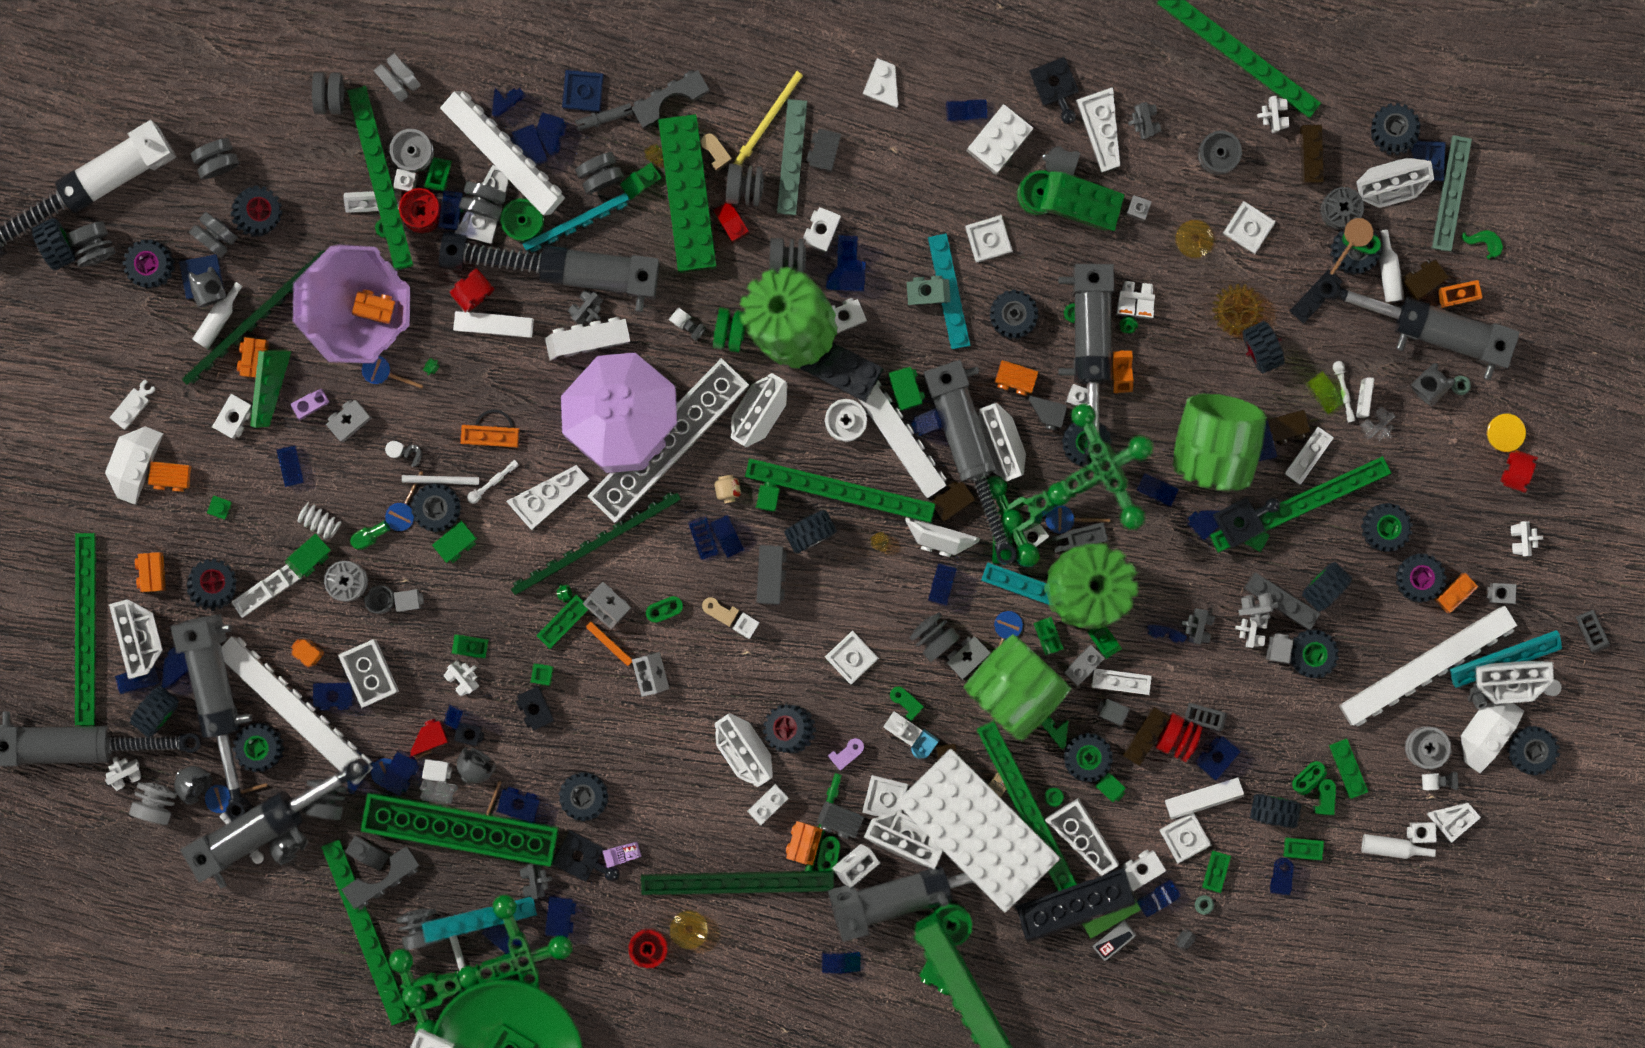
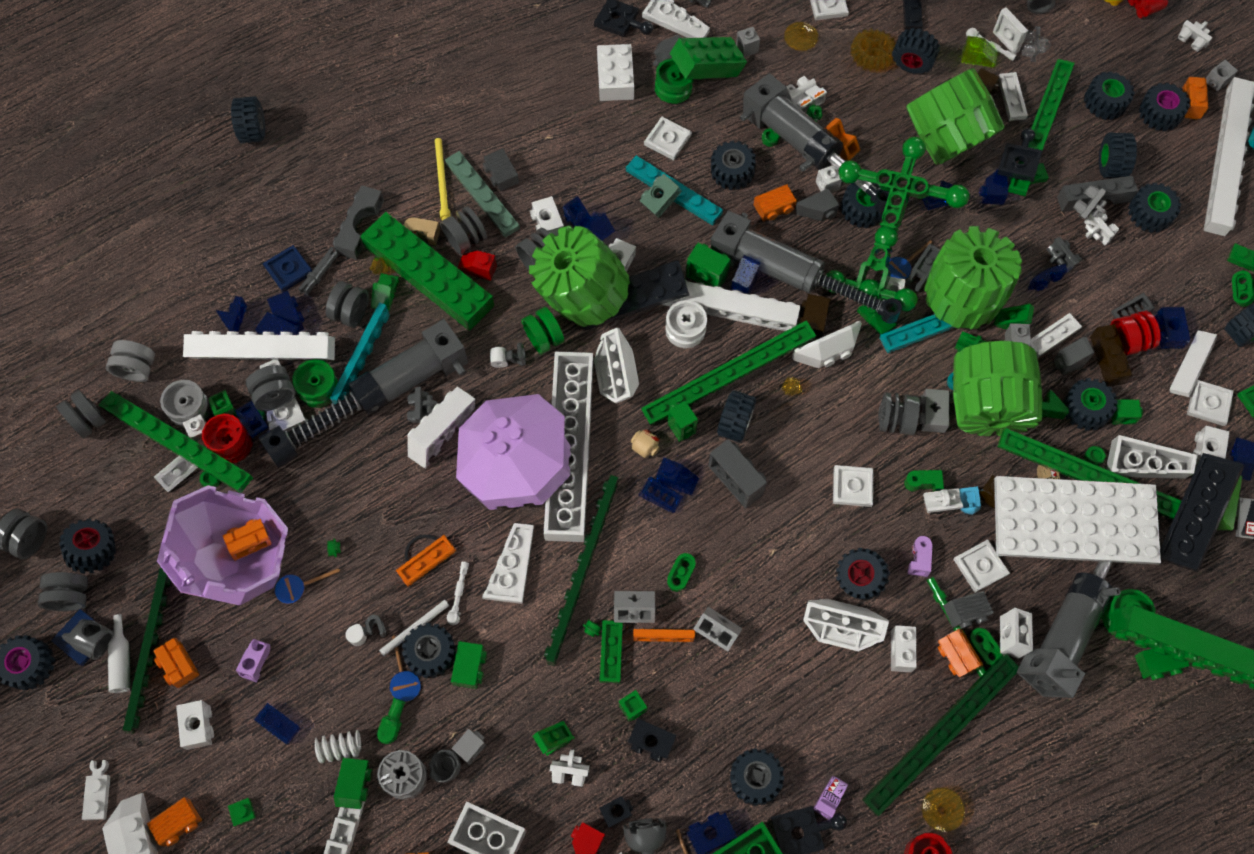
camera: 45 degrees left, 20 degrees down
(268, 382) = (204, 672): green wing -> none
(358, 419) = (300, 655): light grey brick -> none
(453, 716) = (591, 807): clear blue slope -> none
(472, 291) = (318, 462): red brick -> none
(493, 324) = (356, 475): white slope -> none
(714, 609) = (725, 537): tan leg -> none
(746, 625) = (755, 527): white brick -> none
(841, 962) = (1079, 725): clear blue slope -> none
(882, 83) = (503, 103): white wing -> none
(903, 838) = (1031, 579): white wedge -> none
(942, 584) = (865, 376): clear blue brick -> none
(966, 110) = (575, 76): clear blue slope -> none
(1003, 441) = (811, 245): white wedge -> none
(1007, 624) = (938, 368): blue piece -> none
(1279, 648) = (1132, 220): light grey brick -> none

